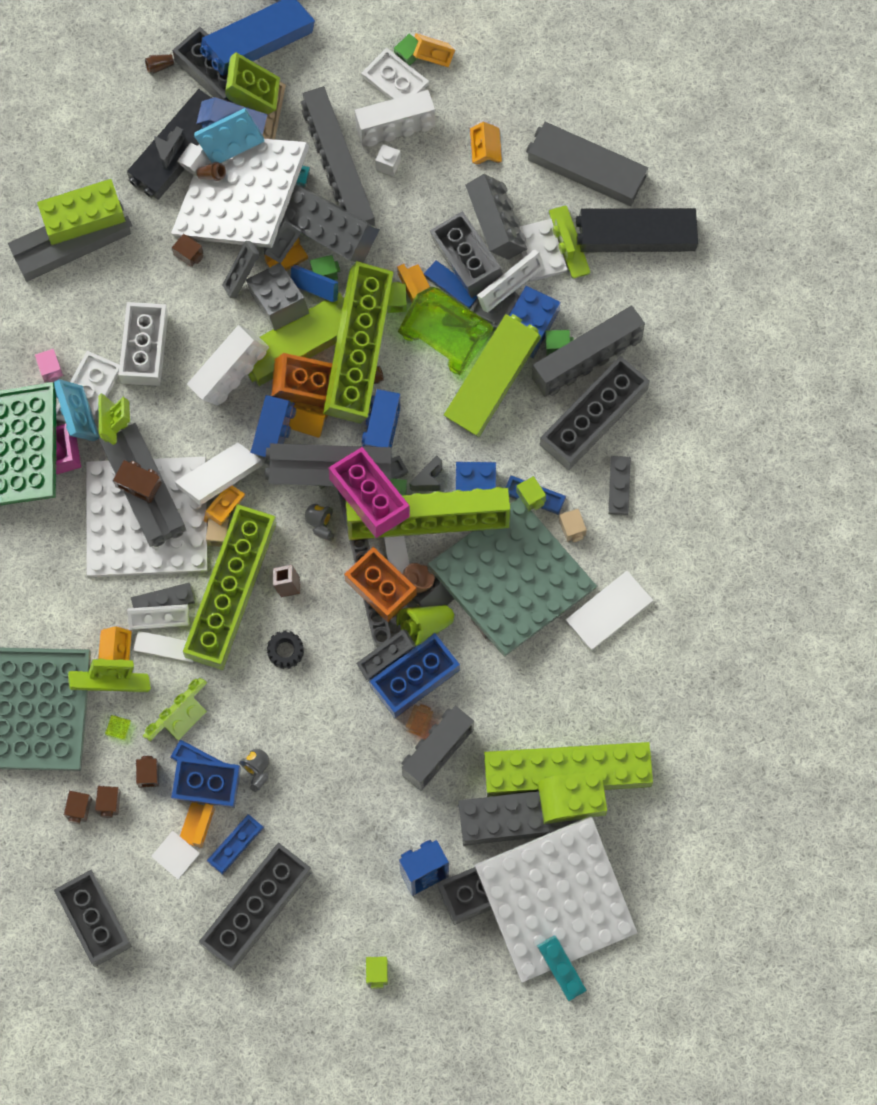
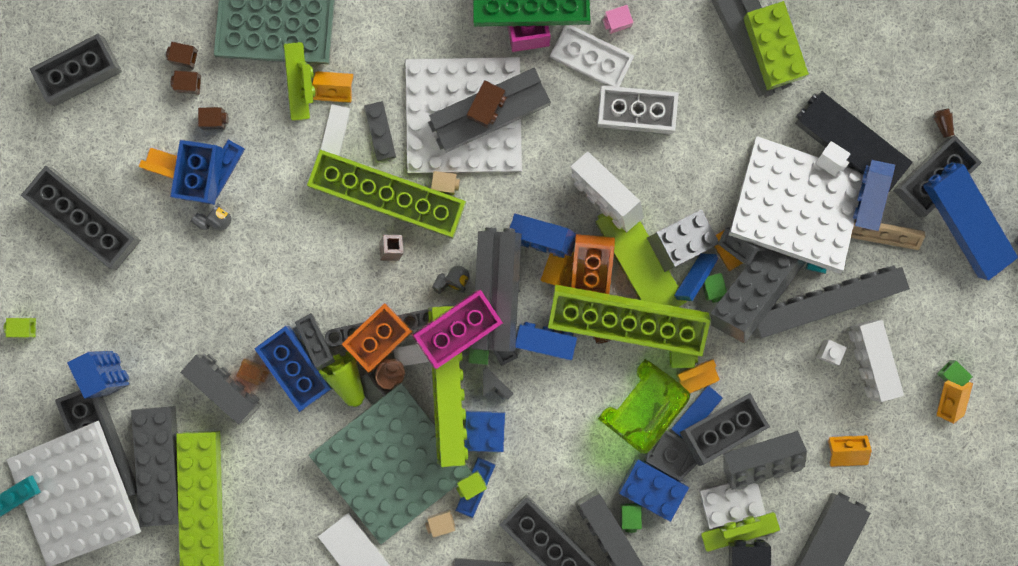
camera: 85 degrees right, 15 degrees up
(76, 410) = (565, 45): medium azure plate -> none
(112, 417) = (556, 79): lime bracket -> none
(118, 727) = (258, 91): clear neon green tile -> none
(158, 617) = (361, 127): white tile -> none
(169, 148) = (842, 131): dark grey slope -> none
(175, 854) = (137, 144): white sticker -> none
(180, 715) = (267, 147): lime bracket -> none
(188, 250) = (736, 153): reddish brown brick -> none
(213, 171) = (817, 175): reddish brown cone -> none
(218, 473) = (499, 182): white tile -> none
(224, 505) = (467, 188): light orange panel -> none
(229, 136) = (852, 192): medium azure plate -> none
(235, 844) = (145, 199): blue tile -> none
(240, 269) = (711, 204): dark grey plate -> none
(251, 85) = (910, 215): lime brick -> none
(286, 662) = (326, 258): black tyre -> none
(394, 76) = (924, 360): white plate -> none
(493, 374) = (594, 452): lime brick -> none
(510, 281) = (693, 473): white plate -> none
(572, 797) = (161, 515): lime brick -> none

